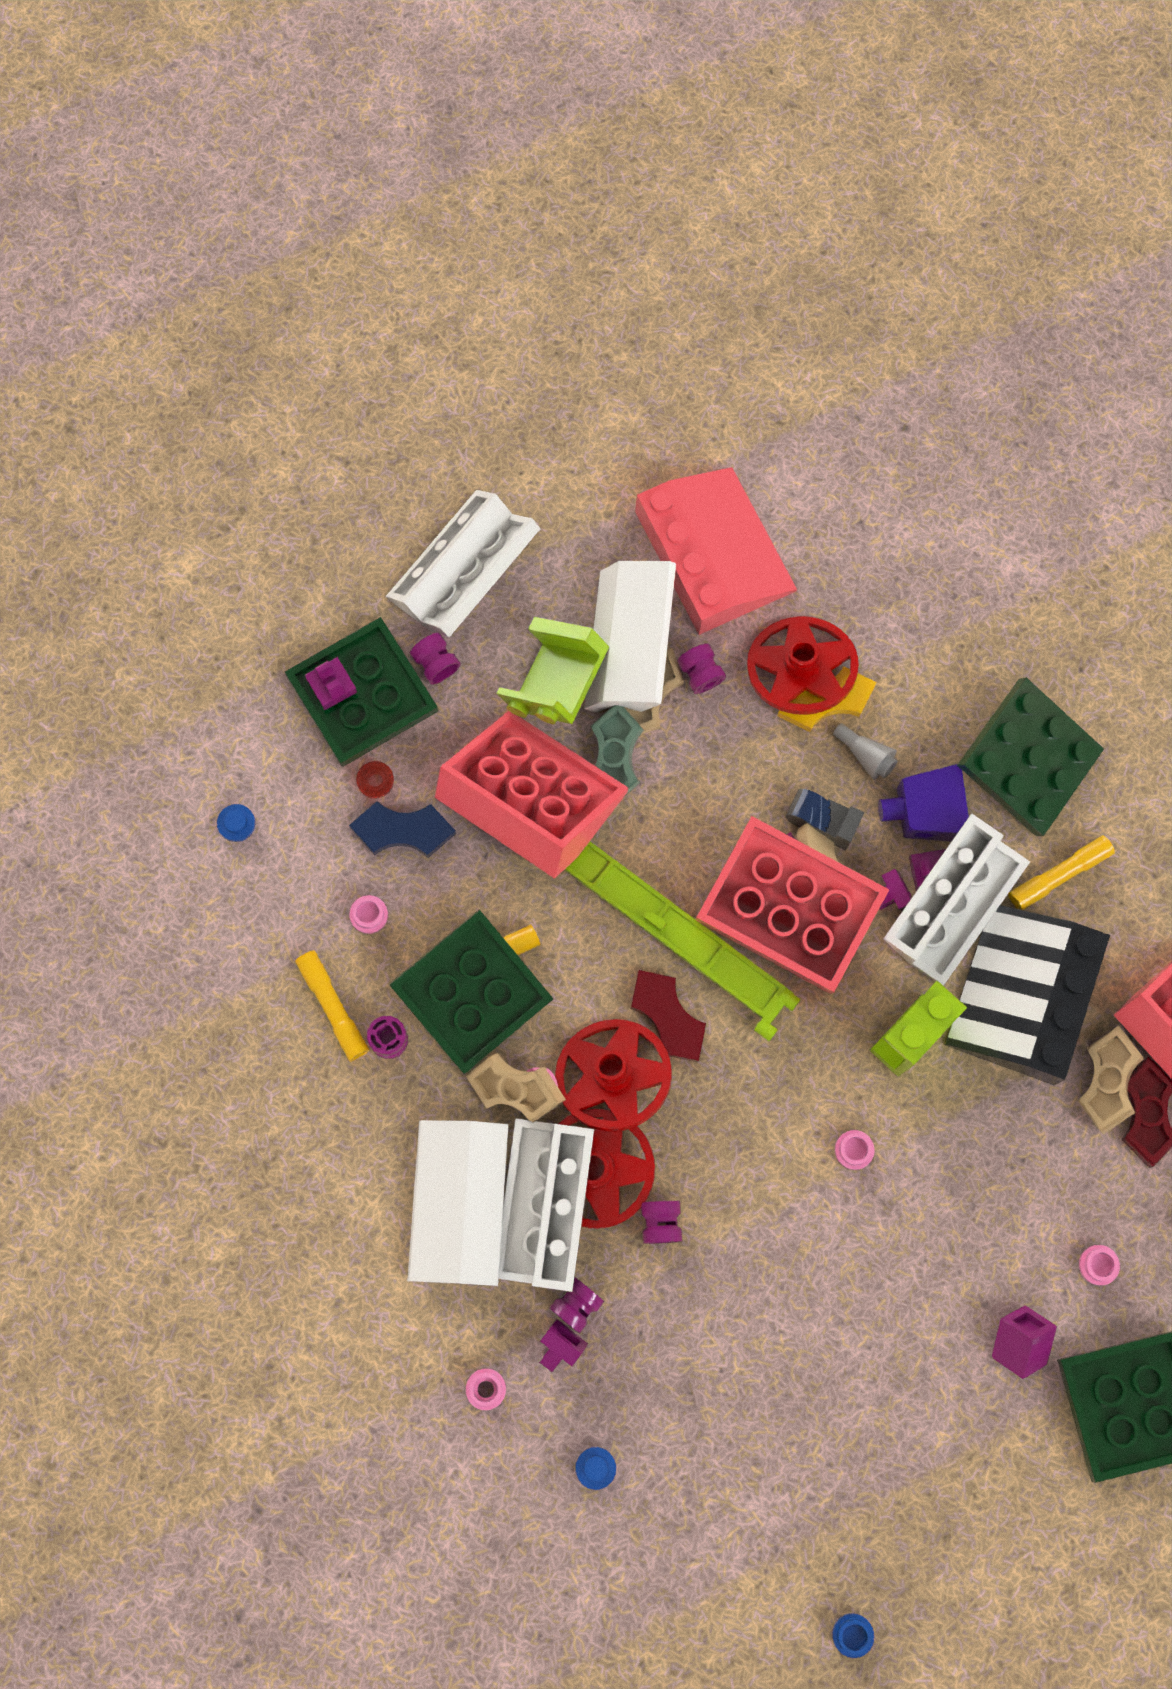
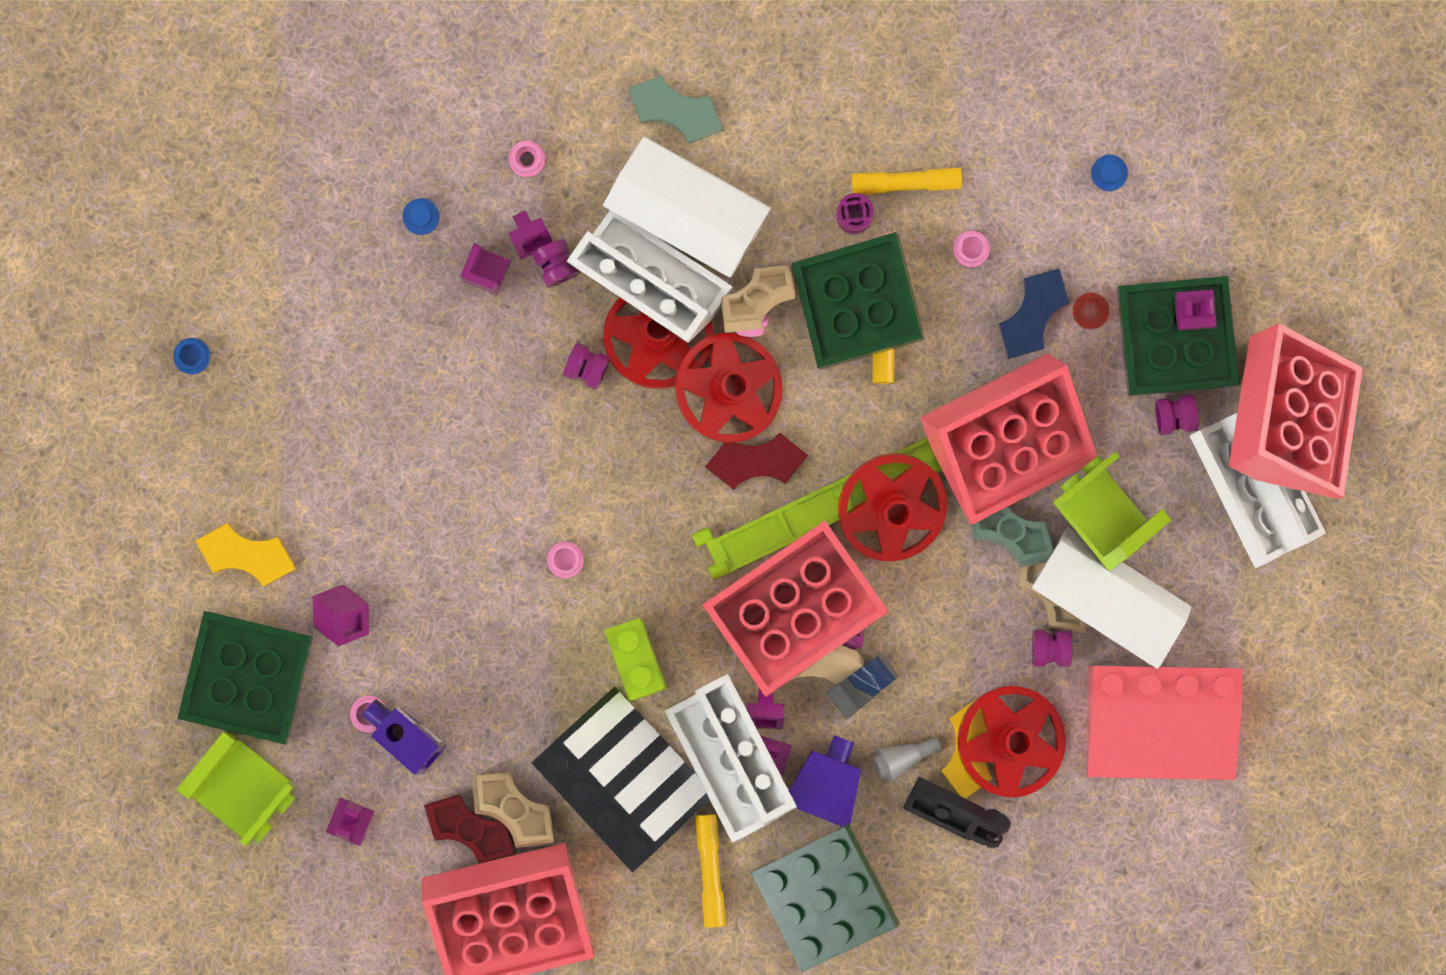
camera: 125 degrees right, 10 degrees up
(366, 1282) = (660, 103): none -> sand green tile
(384, 553) = (1295, 413): none -> coral slope
(617, 1372) = (485, 270): none -> magenta panel
(648, 867) = (892, 507): none -> red wheel
(892, 681) = (956, 814): none -> black hinge
(1020, 1489) = (262, 559): none -> yellow tile
(1116, 1201) = (418, 745): none -> dark purple torso

